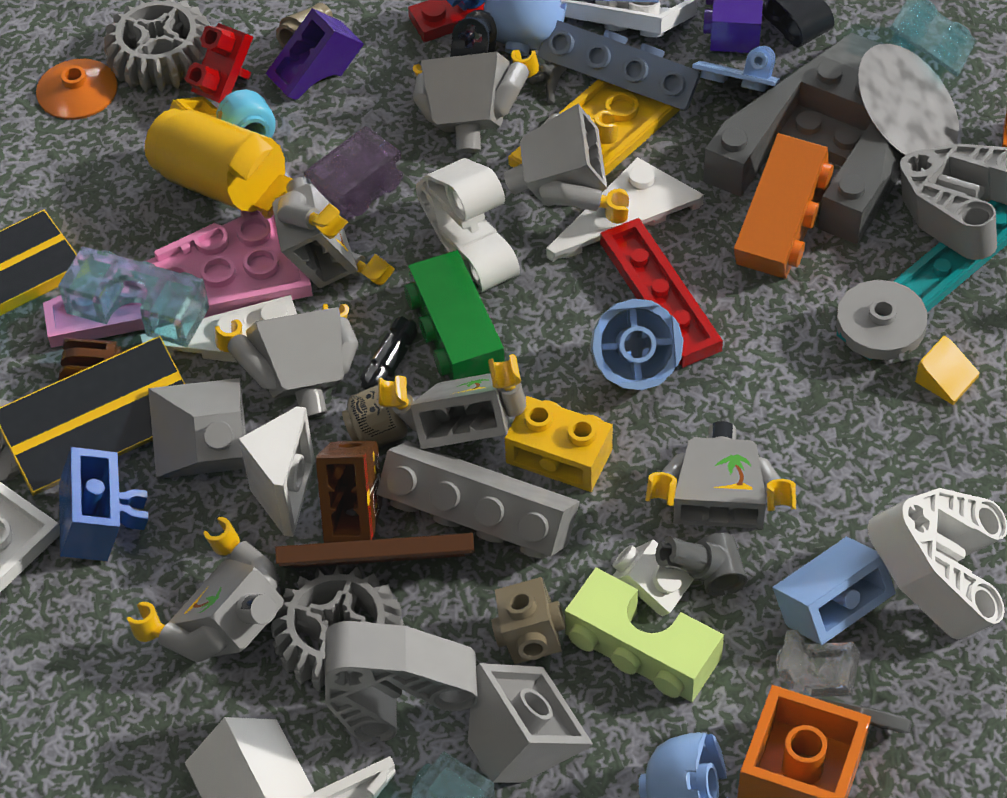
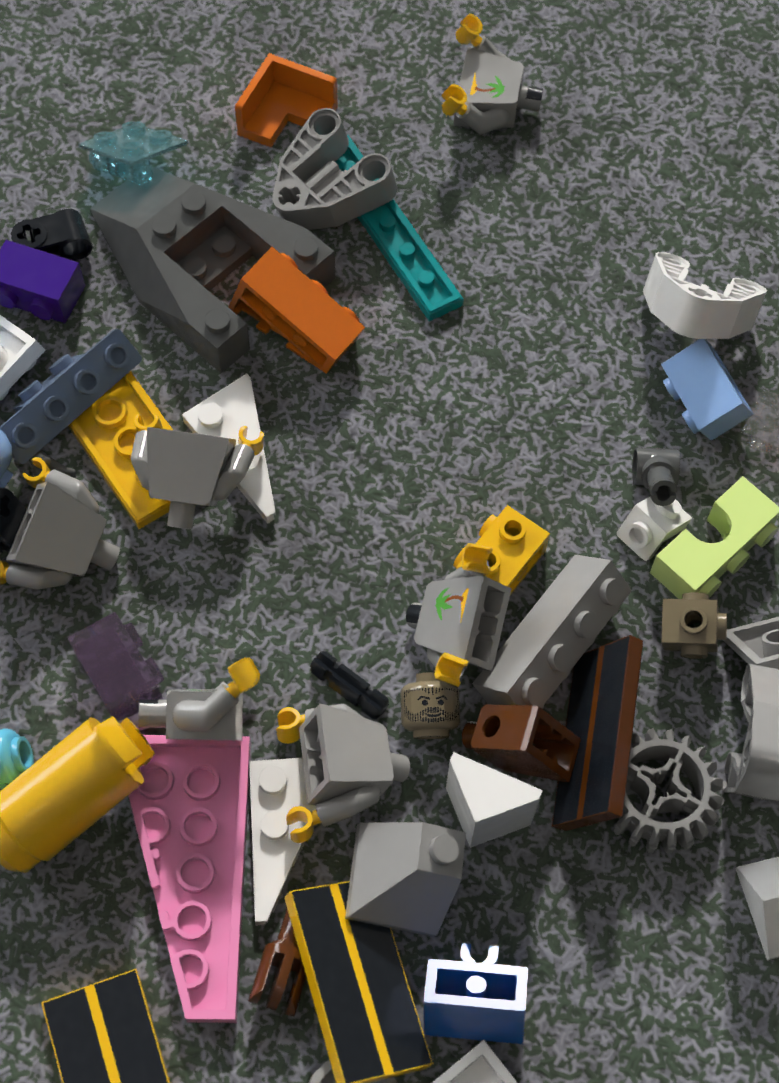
camera: 80 degrees left, 10 degrees up
(104, 282) = (244, 872): clear light blue arch -> none
(226, 607) = (632, 883): light grey torso -> none
(453, 316) = (332, 614): green brick -> none
(456, 208) = (224, 567): white connector -> none
(636, 344) = (421, 464): light blue cylinder -> none
(654, 279) = (348, 436): red plate -> none
(721, 482) = (577, 439): light grey torso -> none
(756, 73) = (123, 290): light blue hinge -> none
(887, 335) = (439, 293): light grey plate -> none
(906, 99) = (214, 183): flat silver sticker -> none
(946, 371) = (496, 254): yellow slope -> none

